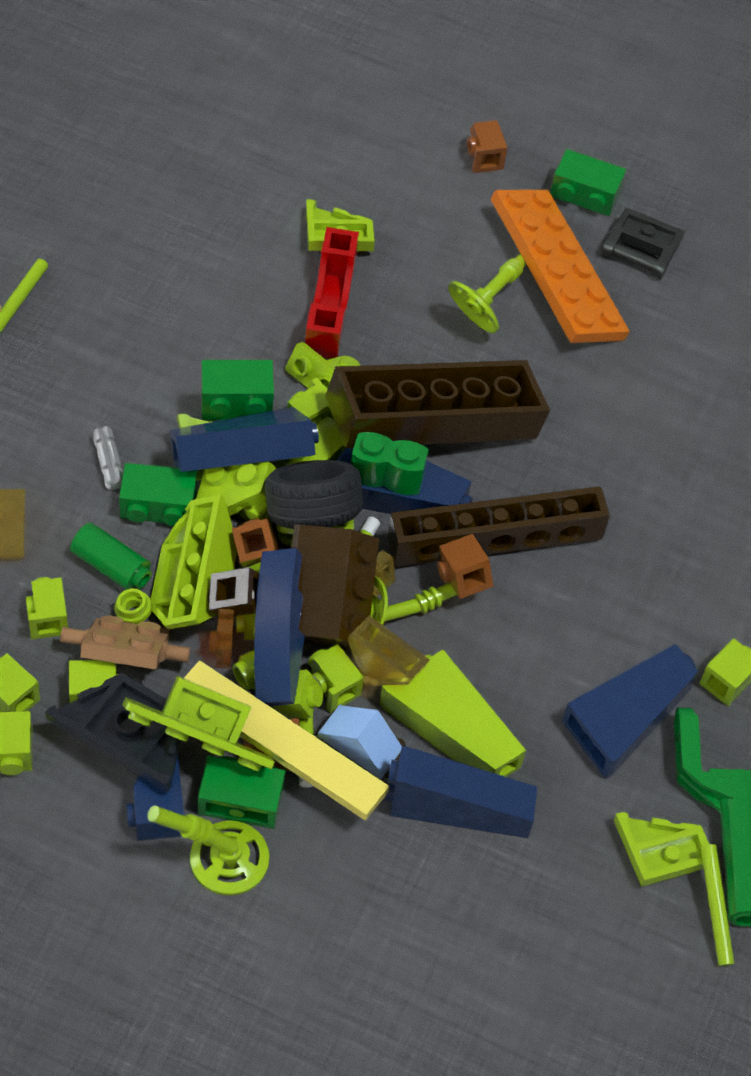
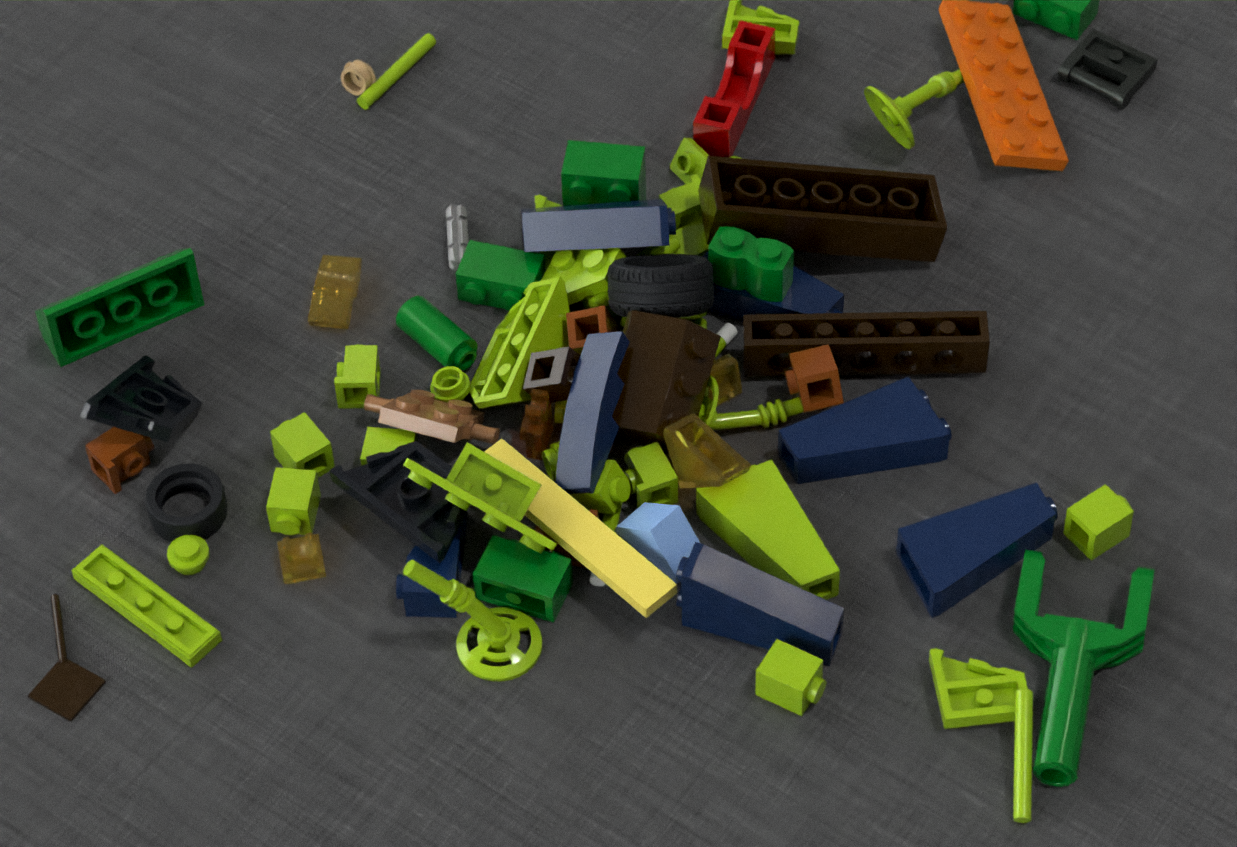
camera: 20 degrees right, 5 degrees down
(29, 797) = (301, 558): none -> clear yellow tile
(501, 858) = (790, 678): none -> lime brick
(515, 613) = (866, 435): none -> dark blue slope

